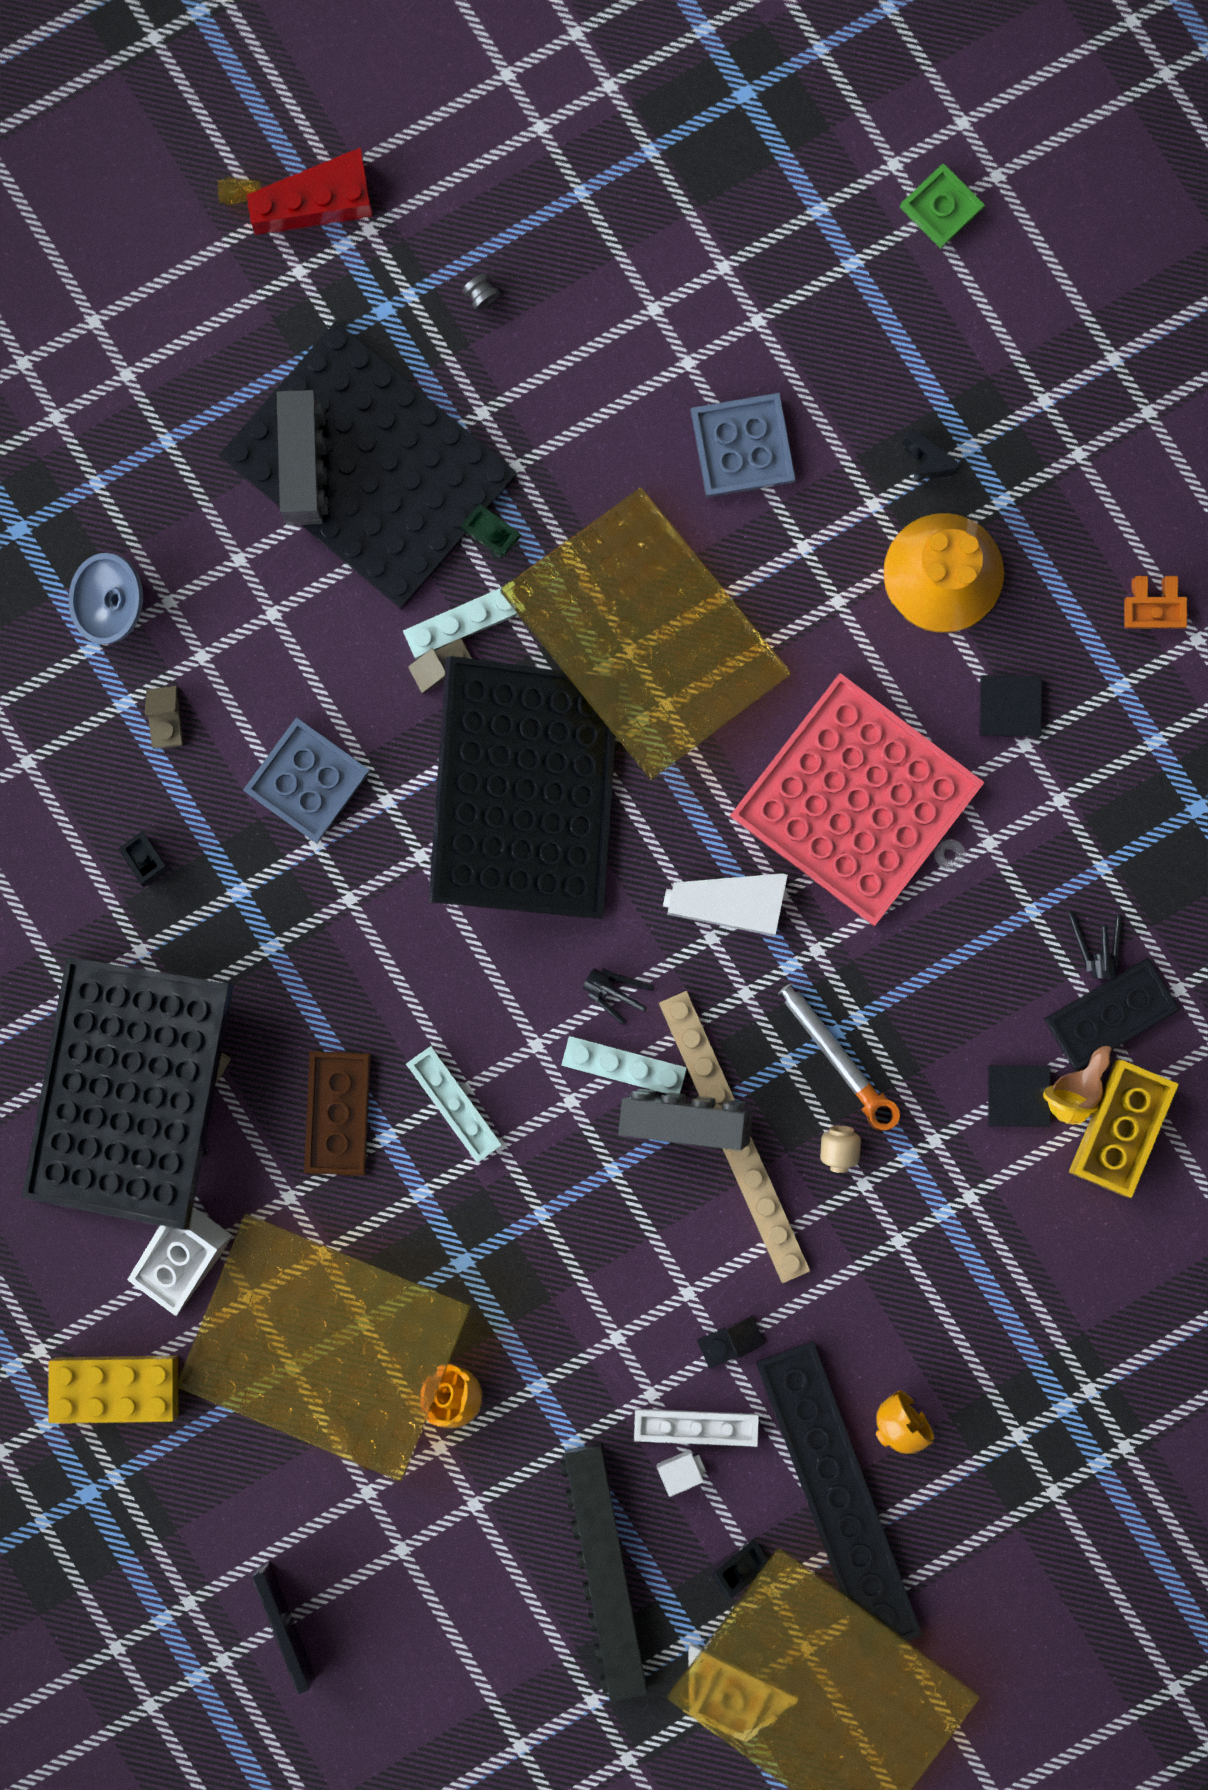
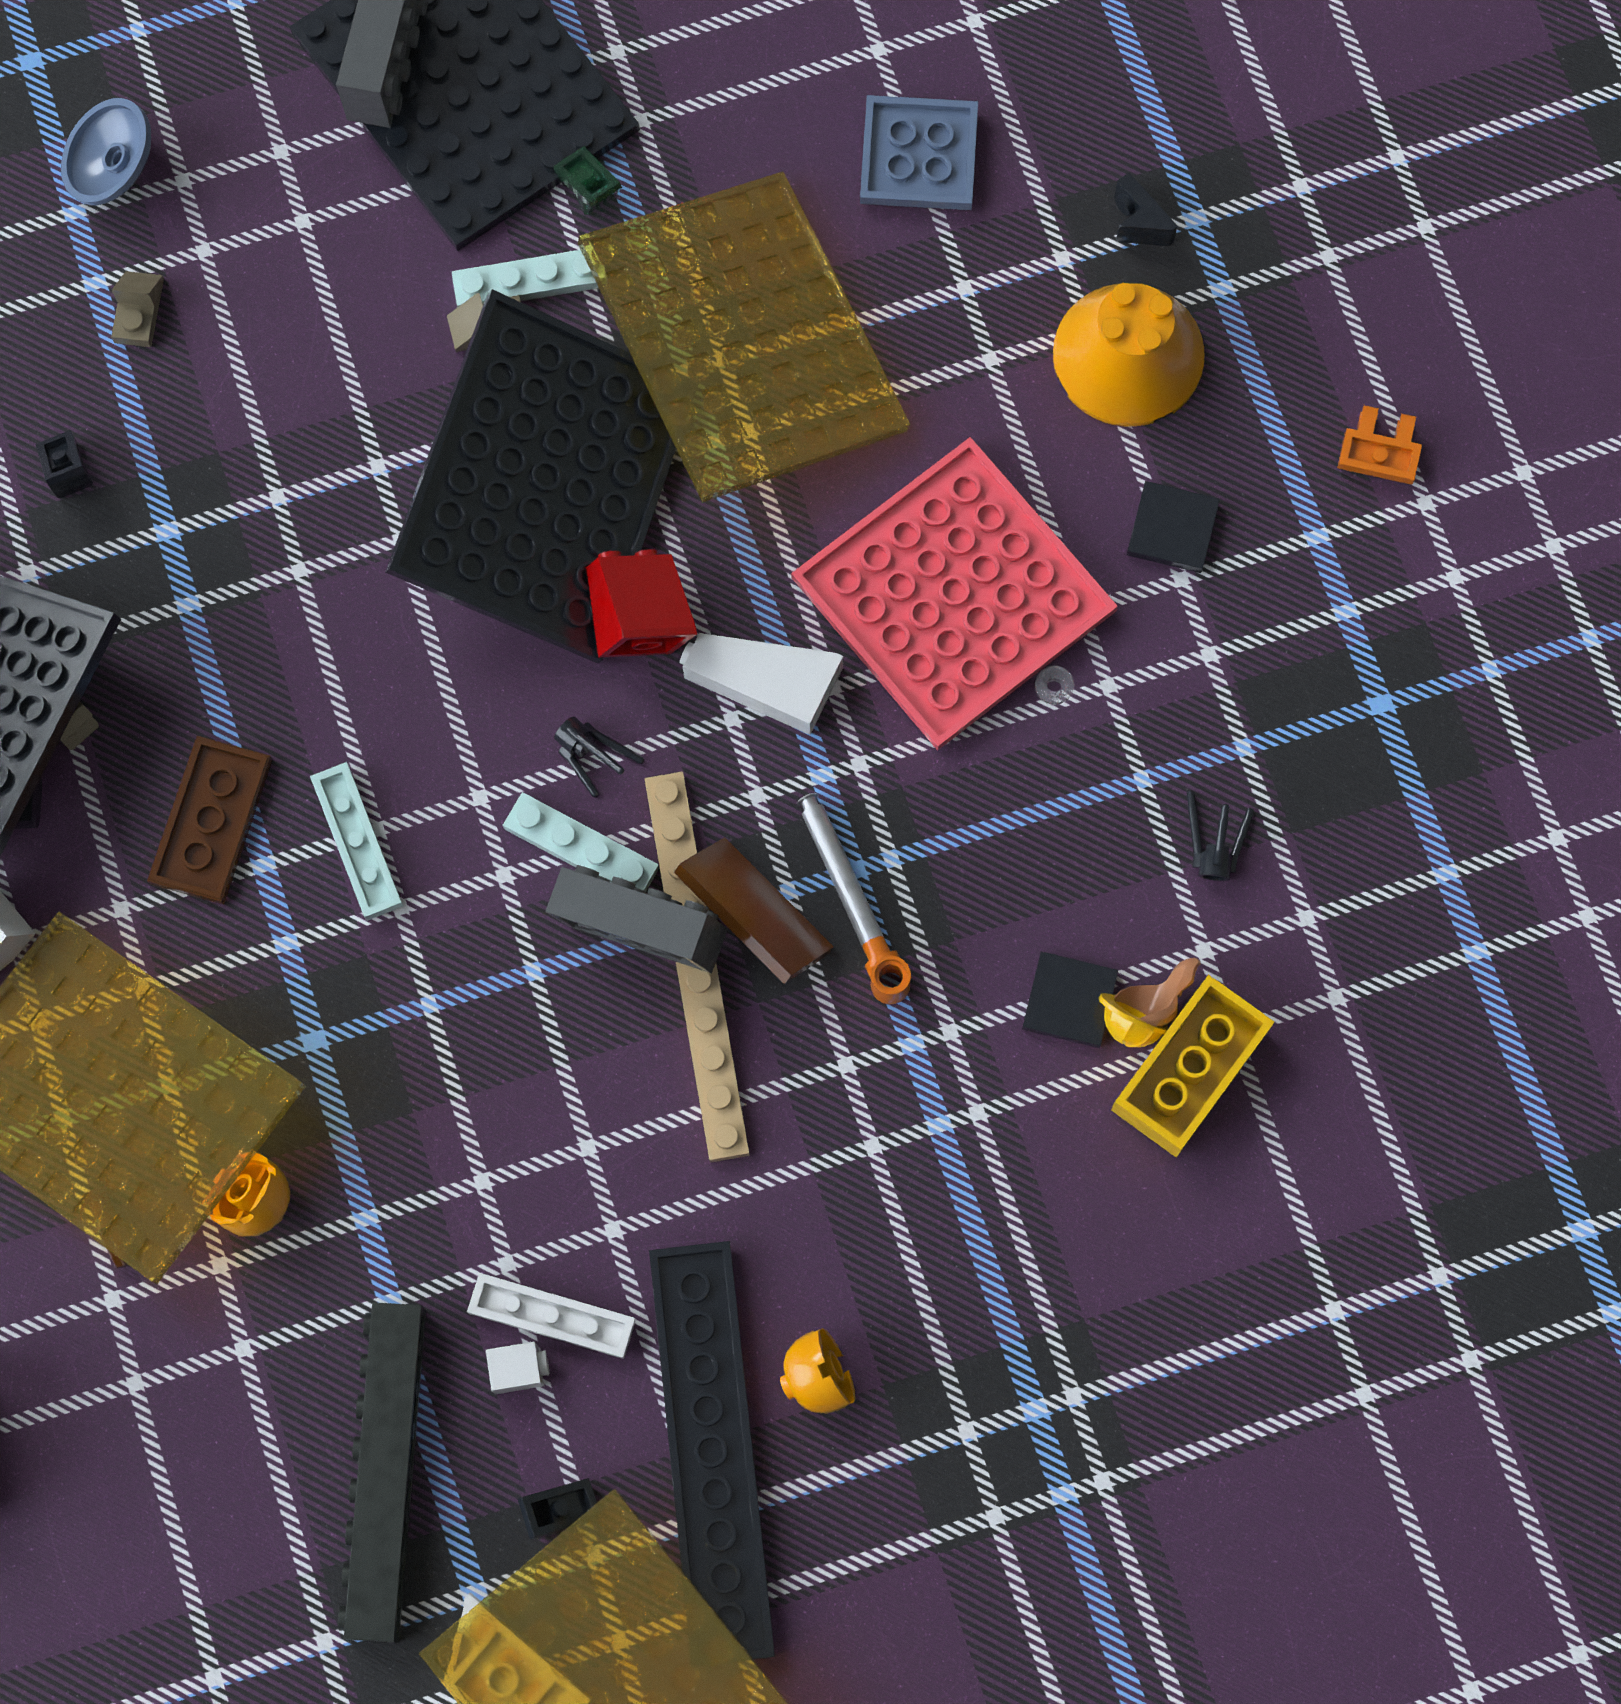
camera: 15 degrees right, 10 degrees down
(306, 780) = (286, 417): sand blue plate -> none
(622, 871) = (638, 604): none -> red slope
(731, 1342) = (625, 1219): black slope -> none
(769, 1088) = (754, 910): none -> reddish brown tile
(840, 1148) = (826, 1008): tan head -> none
(1111, 1013) = (1213, 925): black tile -> none

